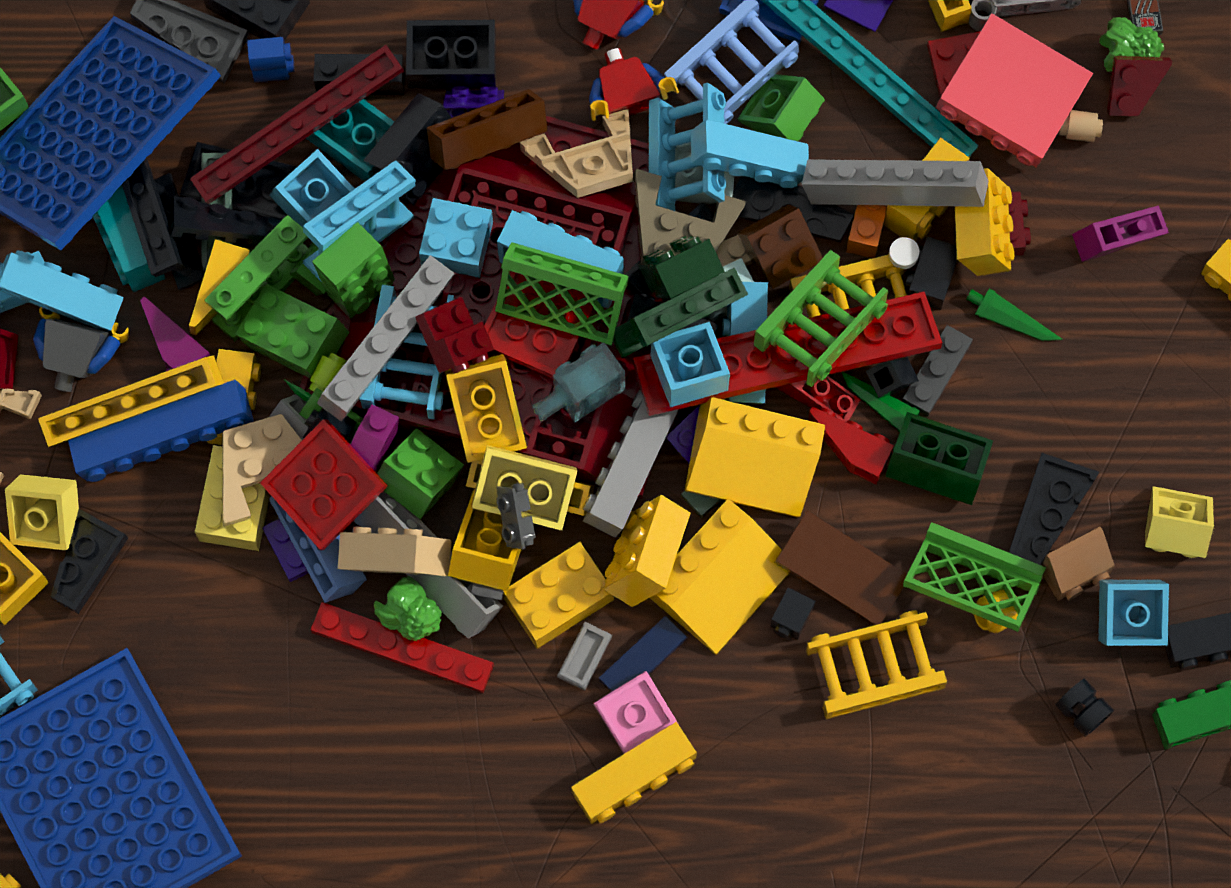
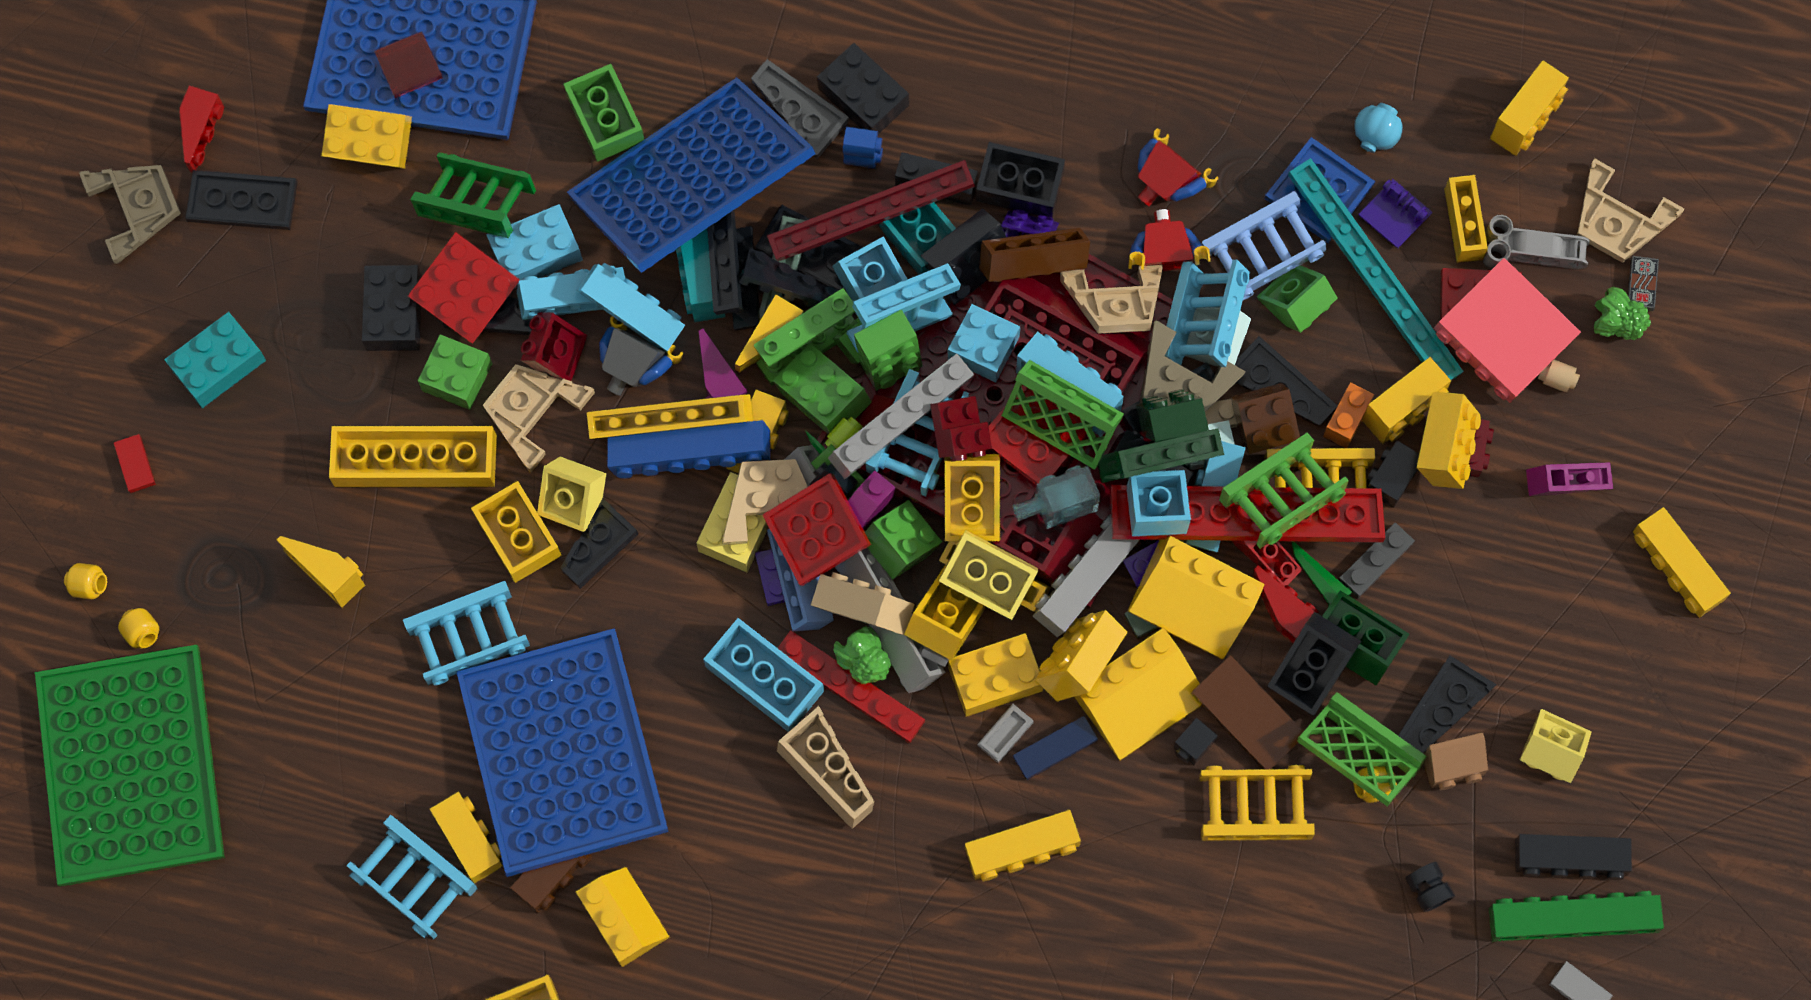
camera: 15 degrees right, 0 degrees up
(304, 658) = (763, 675): none -> medium azure brick
(398, 742) = (826, 767): none -> tan wedge
(516, 530) = (973, 585): dark grey hinge -> none
(634, 712) = (1036, 792): bright pink tile -> none
(748, 153) = (1258, 331): medium azure brick -> none
(892, 376) = (1334, 556): black brick -> none
(895, 182) = (1379, 387): light grey brick -> none
(900, 497) = (1314, 663): none -> black brick
(904, 253) = (1372, 450): white tile -> none
(1004, 313) = (1447, 523): green bar -> none
(1133, 612) = (1494, 815): medium azure brick -> none
(1134, 83) = (1616, 349): dark red wing -> none

